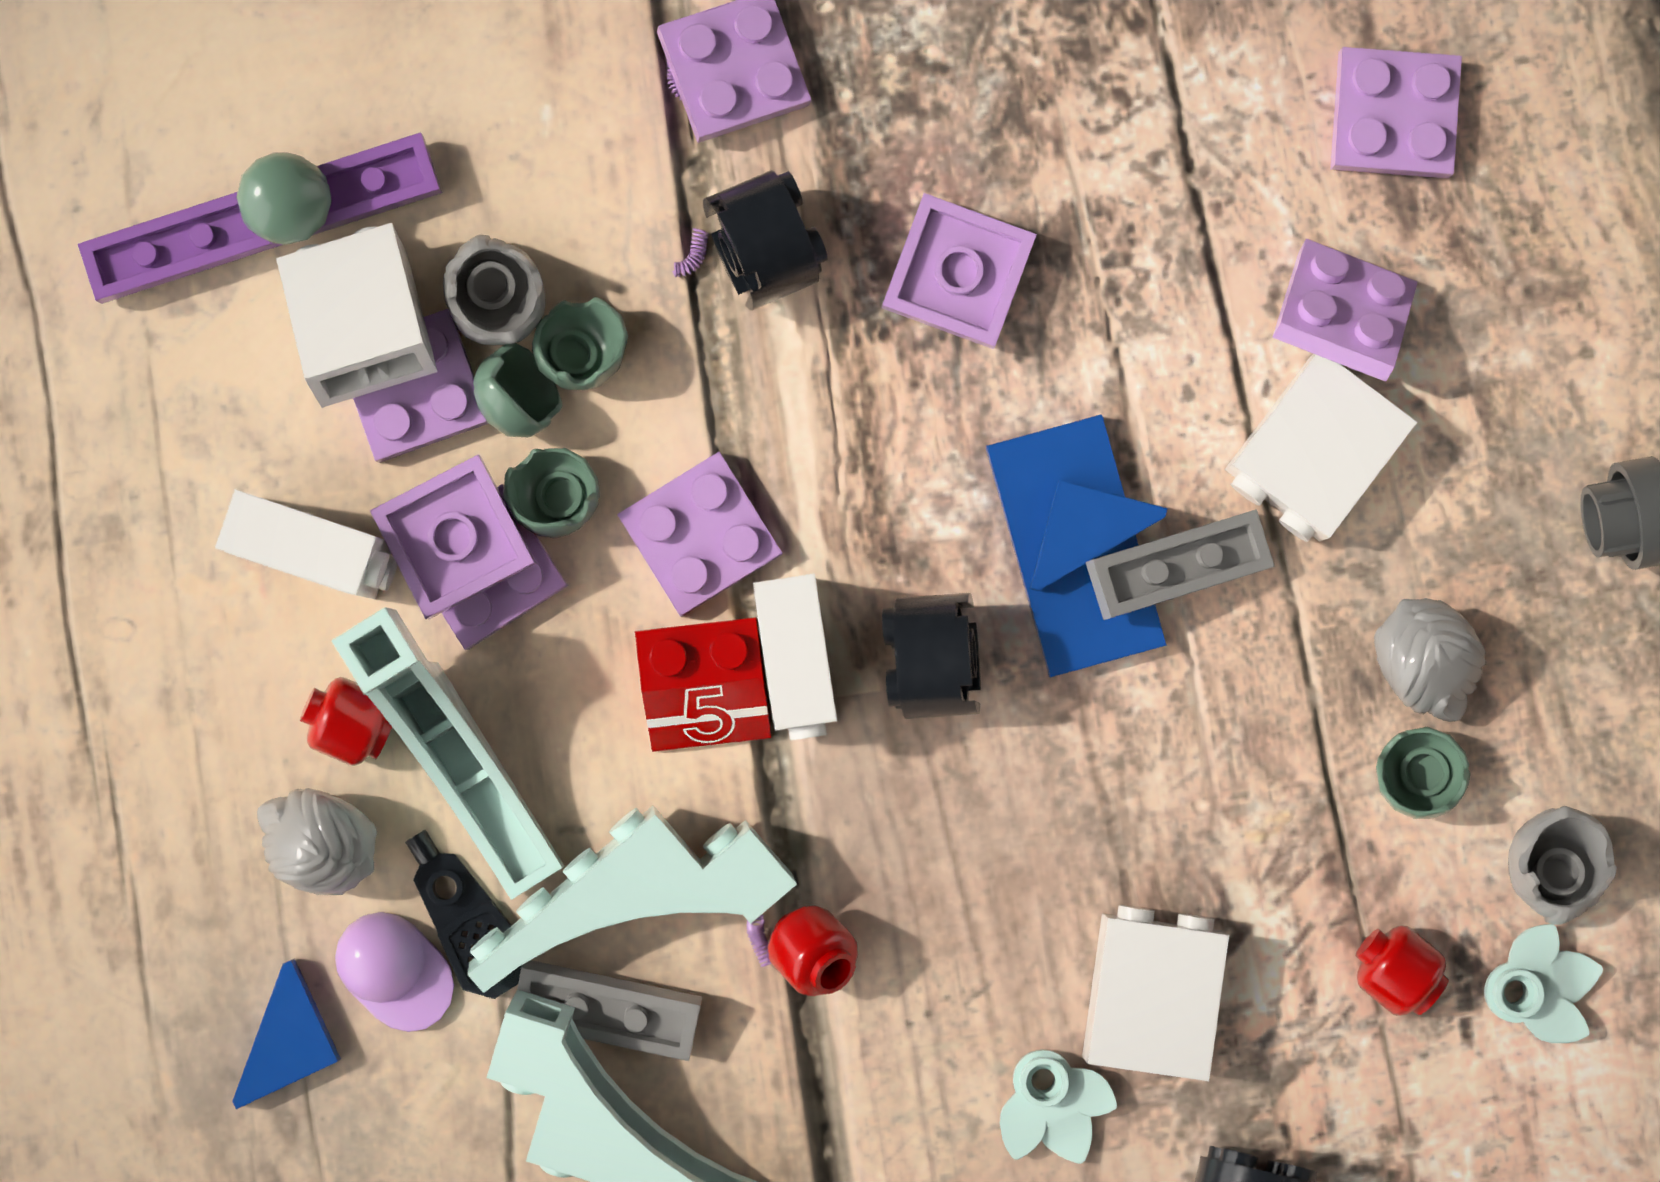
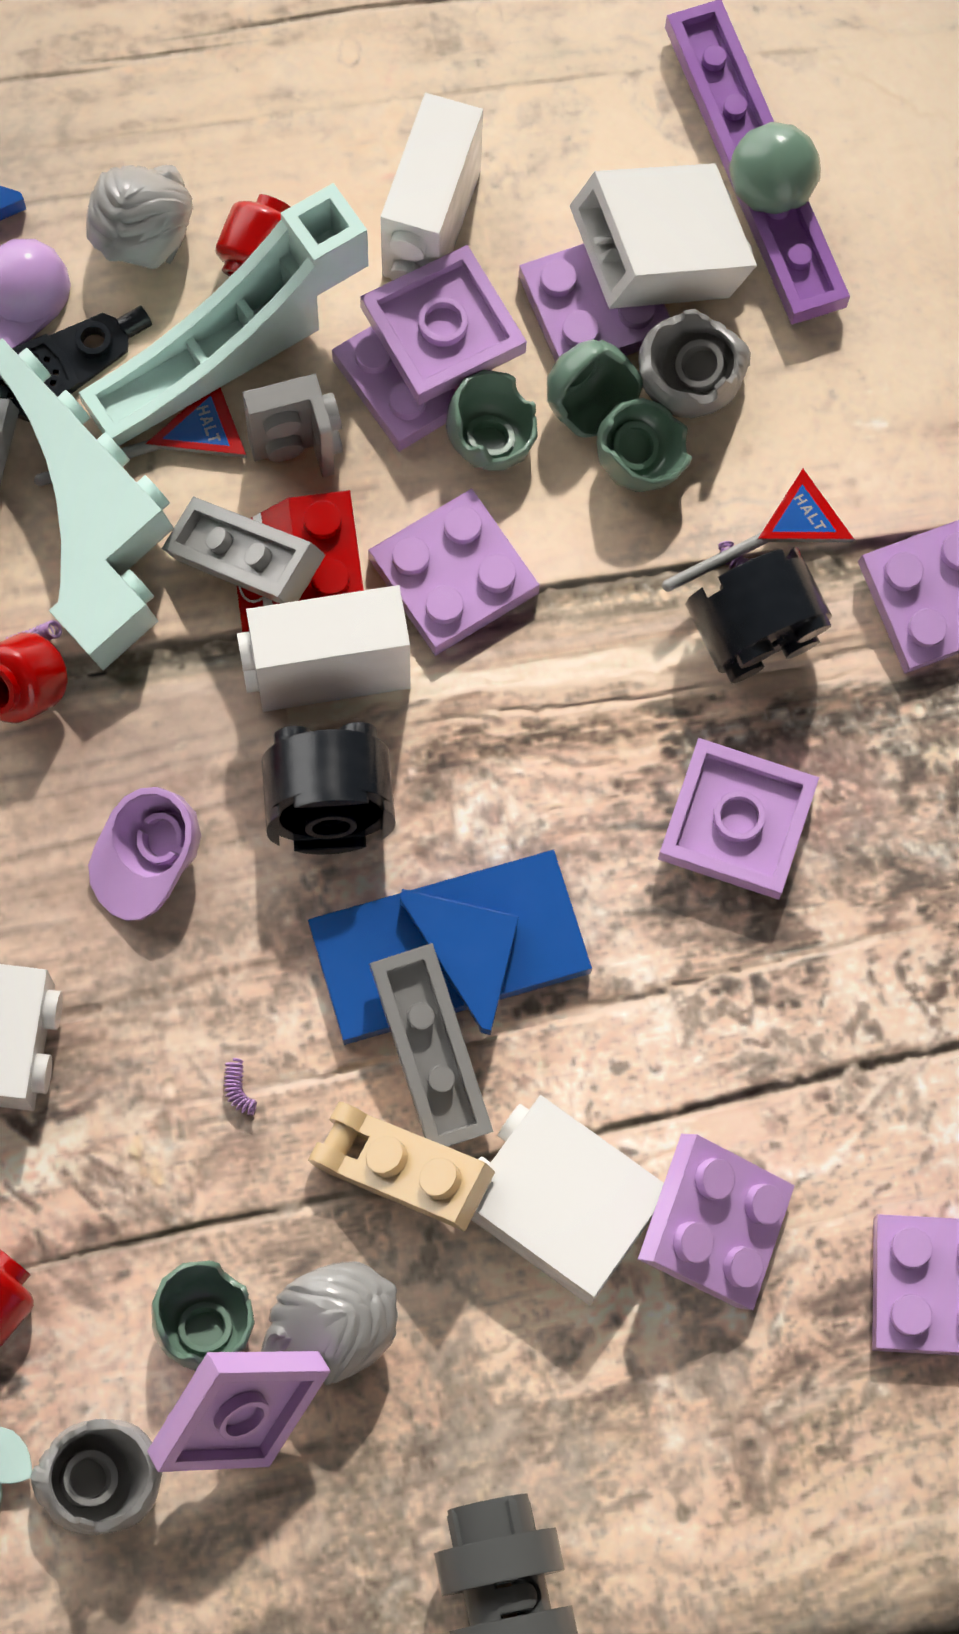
camera: 85 degrees right, 15 degrees down
(542, 782) = (199, 428): none -> piece
(555, 695) = (293, 417): none -> light grey bracket
(650, 195) = (800, 517): none -> piece
(695, 735) = (243, 551): none -> light grey plate
(986, 830) = (143, 852): none -> lavender cap
(1217, 740) = (235, 1091): none -> lavender leg
(1292, 591) = (403, 1167): none -> tan plate
(1518, 739) = (238, 1410): none -> lavender plate

